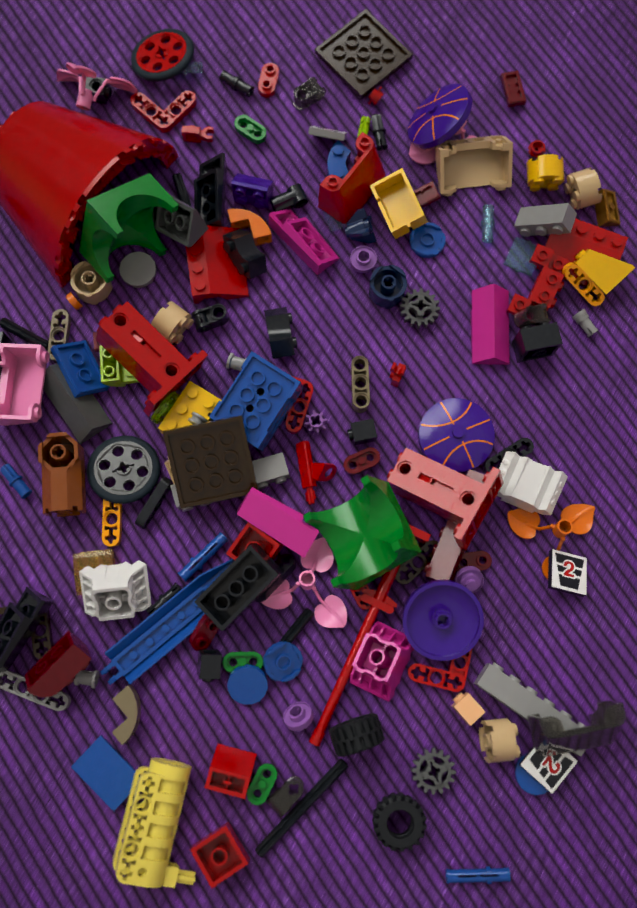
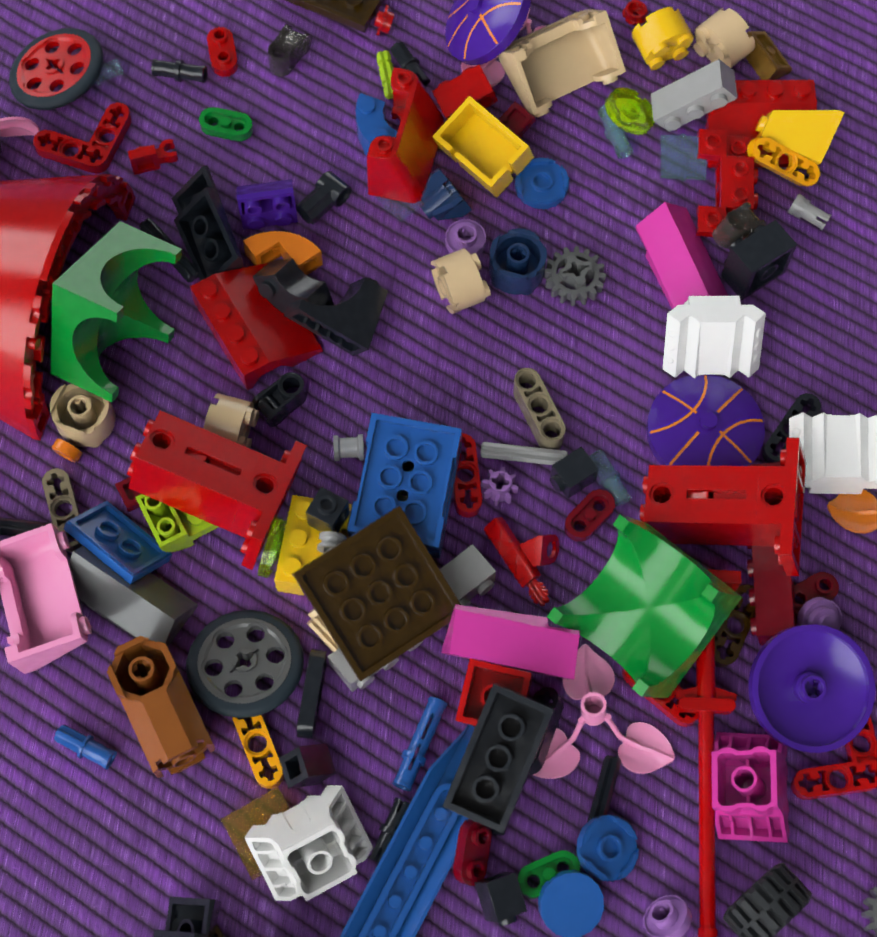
camera: 20 degrees left, 10 degrees down
(132, 544) = (307, 765): none -> black brick
(138, 269) = (143, 372): light grey tile -> none
(182, 225) = (191, 282): dark grey slope -> none
(202, 401) = (327, 511): none -> black brick
(269, 285) = (349, 322): none -> black arch
(279, 332) = (397, 388): black brick -> none
(303, 239) = (367, 245): dark pink slope -> none
(327, 133) = (341, 89): light grey tile -> none
(338, 407) = (521, 453): none -> light grey axle
(346, 284) = (459, 280): none -> tan brick
(383, 443) = (610, 478): none -> clear light blue axle
(397, 373) = (584, 374): red plate -> none
(408, 160) = (470, 82): none -> red brick
(485, 381) = (713, 337): none -> white slope
(502, 213) = (629, 111): none -> clear neon green tile

